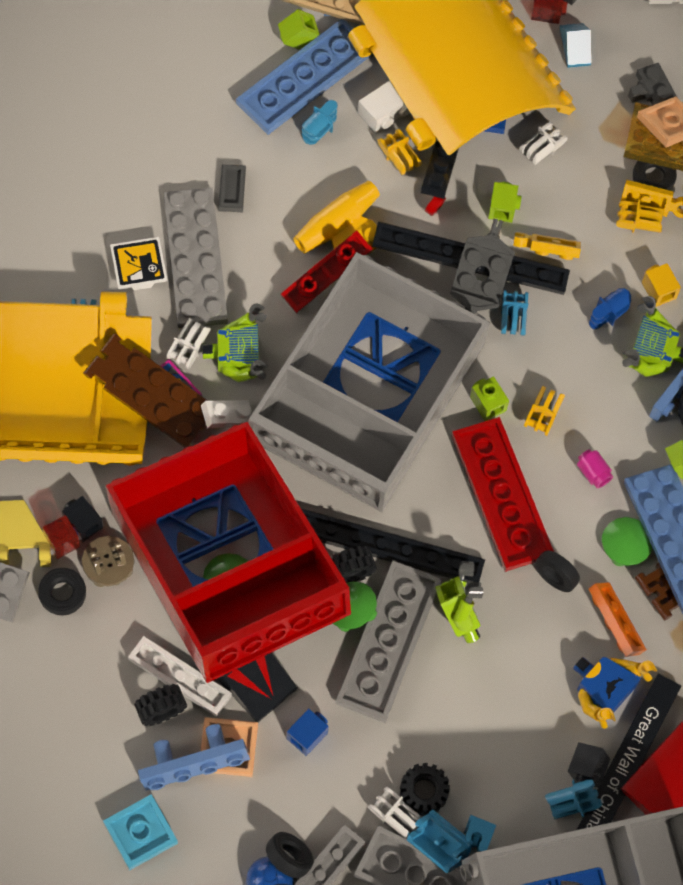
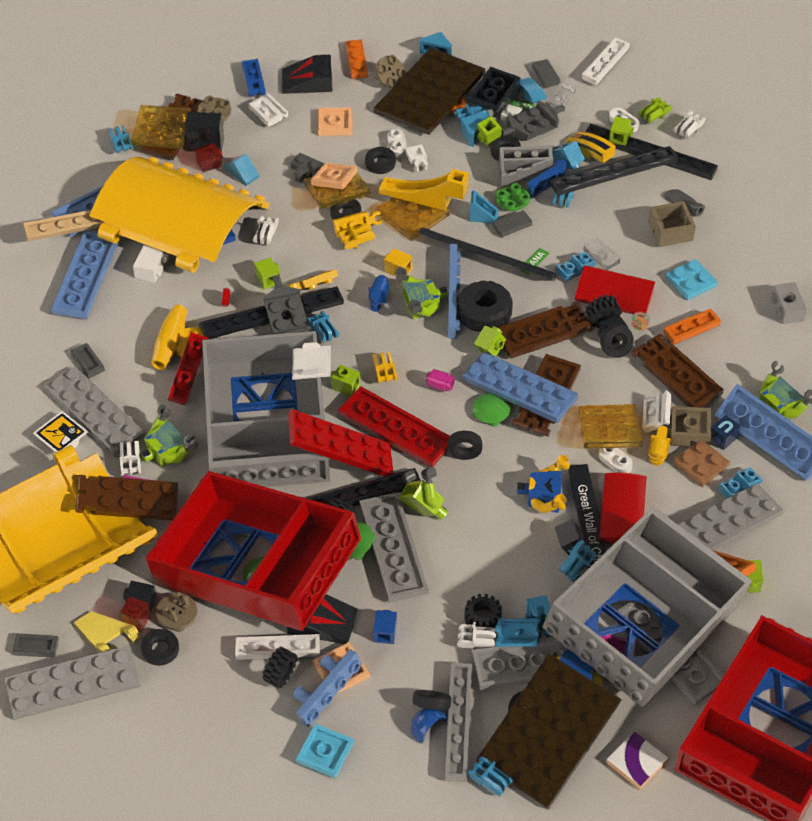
camera: 30 degrees left, 15 degrees down
(226, 413) = (186, 482): white plate -> none
(298, 29) = (61, 250): lime brick -> none
(319, 122) = (116, 293): dark azure arm -> none
(399, 152) = (179, 281): yellow arm -> none
(412, 482) = (340, 443): none -> red plate
(438, 172) = (214, 276): black plate -> none
(455, 359) = (311, 361): none -> white piece
(617, 619) = (520, 452): orange plate -> none

